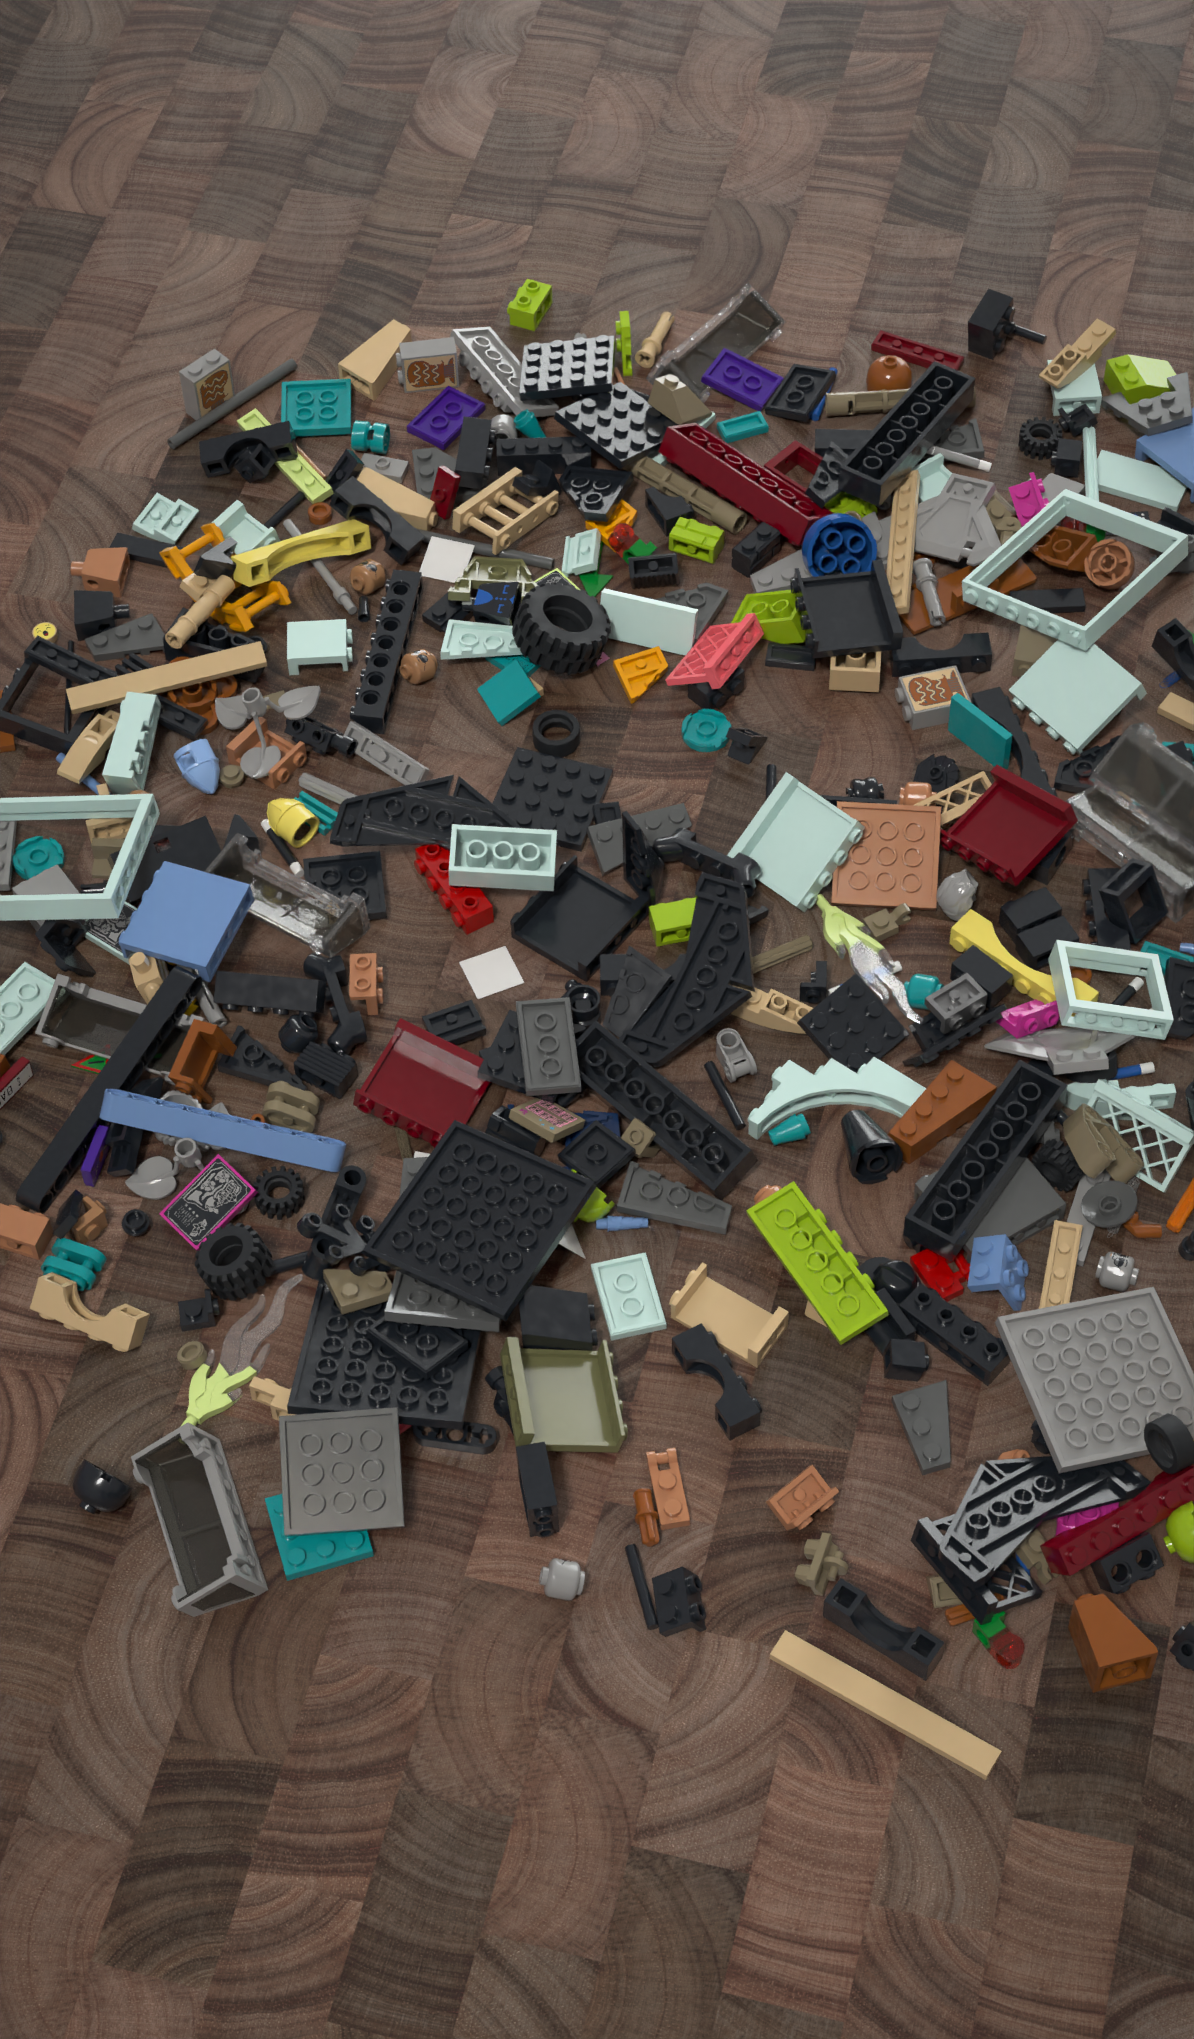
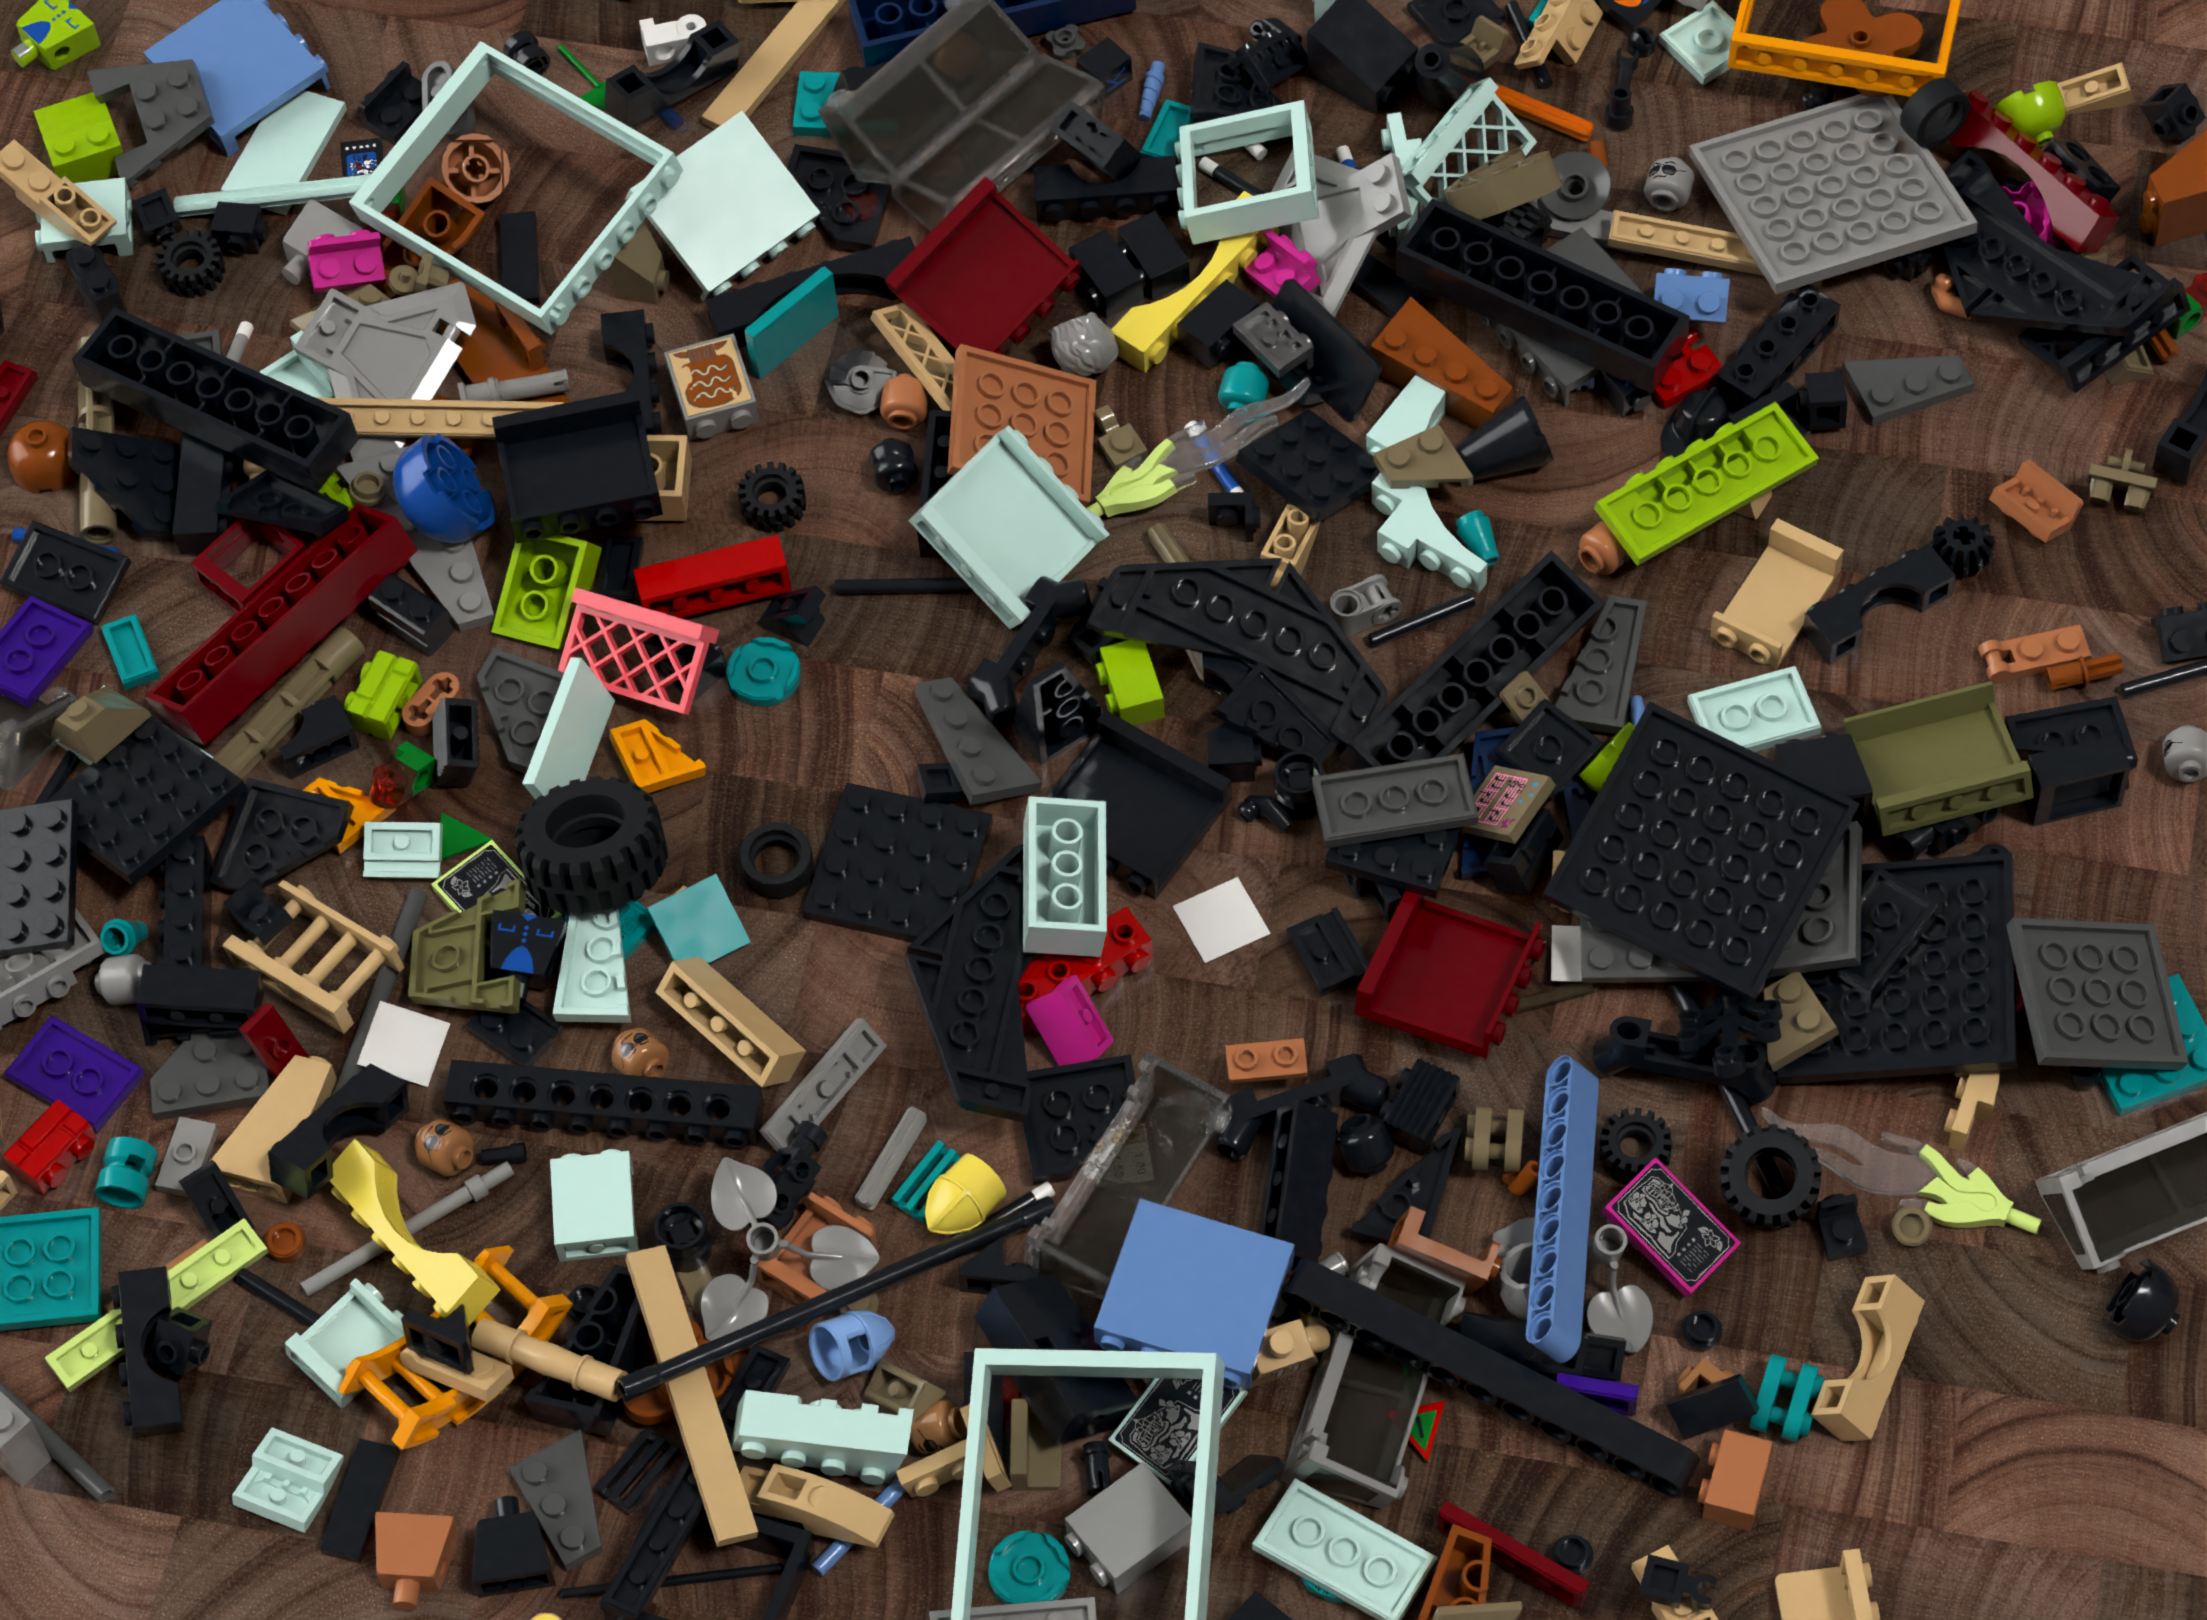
camera: 90 degrees left, 5 degrees up
(165, 790) = (901, 1389): none -> dark tan slope
(171, 650) = (654, 1376): none -> black piece
(284, 678) = (685, 1236): none -> black wheel
(393, 405) = (50, 1147): none -> red brick
(409, 878) = (1070, 1023): none -> dark pink panel
(434, 707) = (730, 1021): none -> tan brick
(590, 1506) = (2068, 726): none -> black wing
(694, 566) = (427, 700): none -> nougat beam
(766, 1433) = (1964, 544): none -> black gear
(772, 695) = (715, 578): none -> red brick
(846, 720) = (772, 514): none -> black tyre
(846, 1087) = (1422, 462): none -> dark tan wing
(865, 405) = (130, 476): none -> black plate
(1020, 392) = (95, 281): none -> black brick

